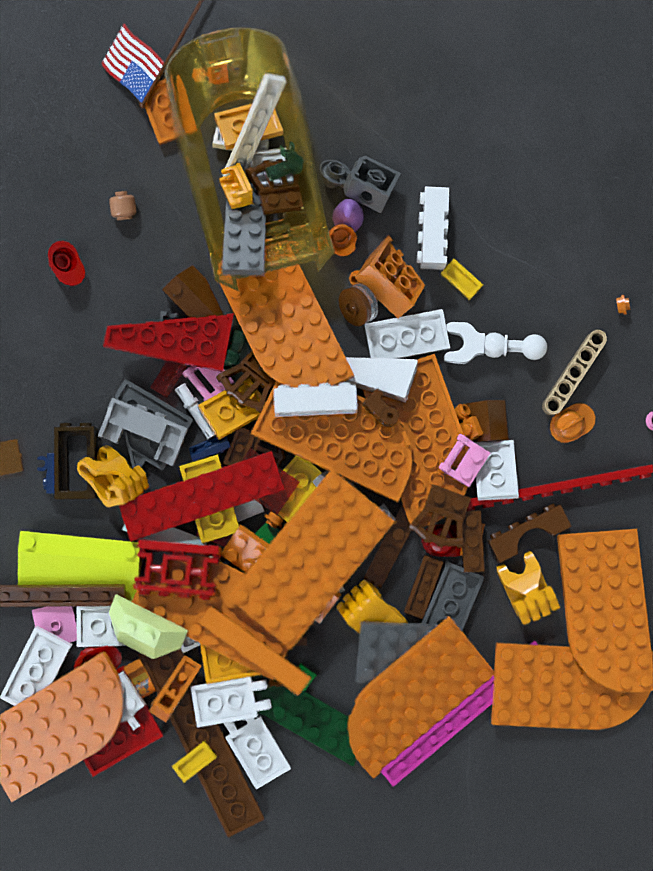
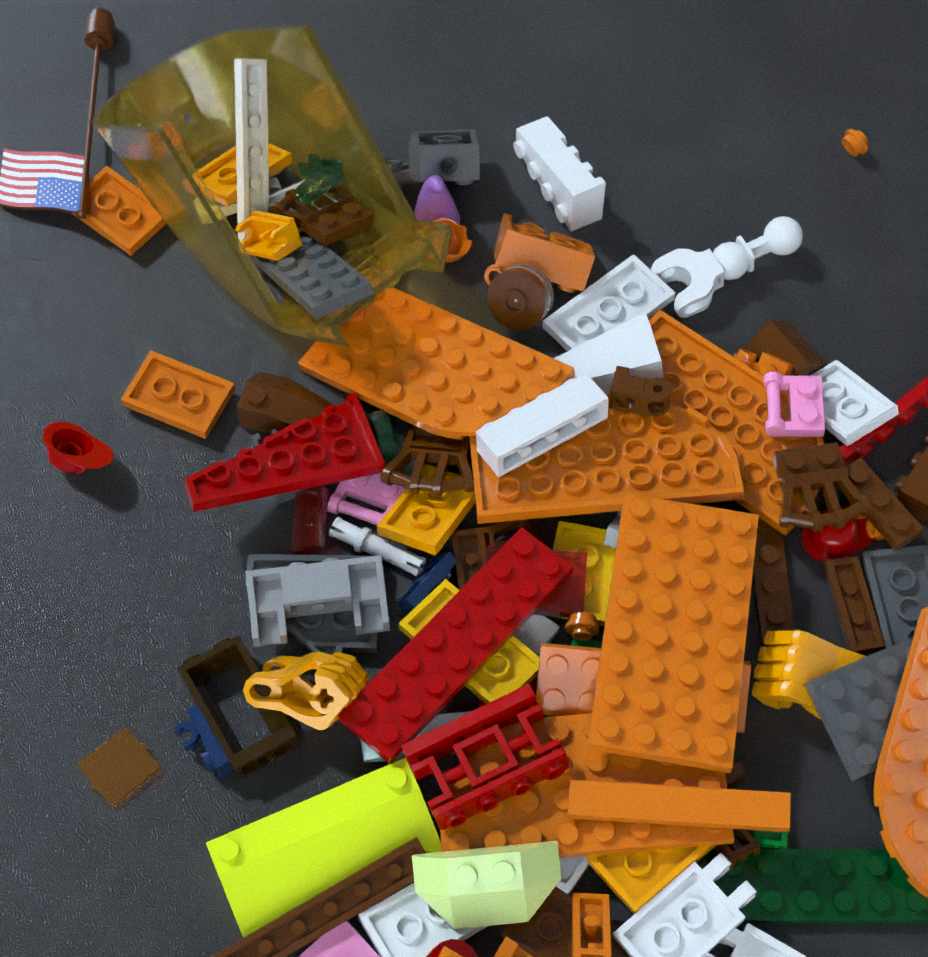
camera: 30 degrees left, 25 degrees down
(122, 205) = (120, 344): nougat head -> none
(139, 256) = (178, 394): none -> orange plate
(461, 279) = (633, 215): yellow tile -> none
(572, 422) = (894, 306): orange piece -> none
(582, 367) = (854, 244): tan beam -> none

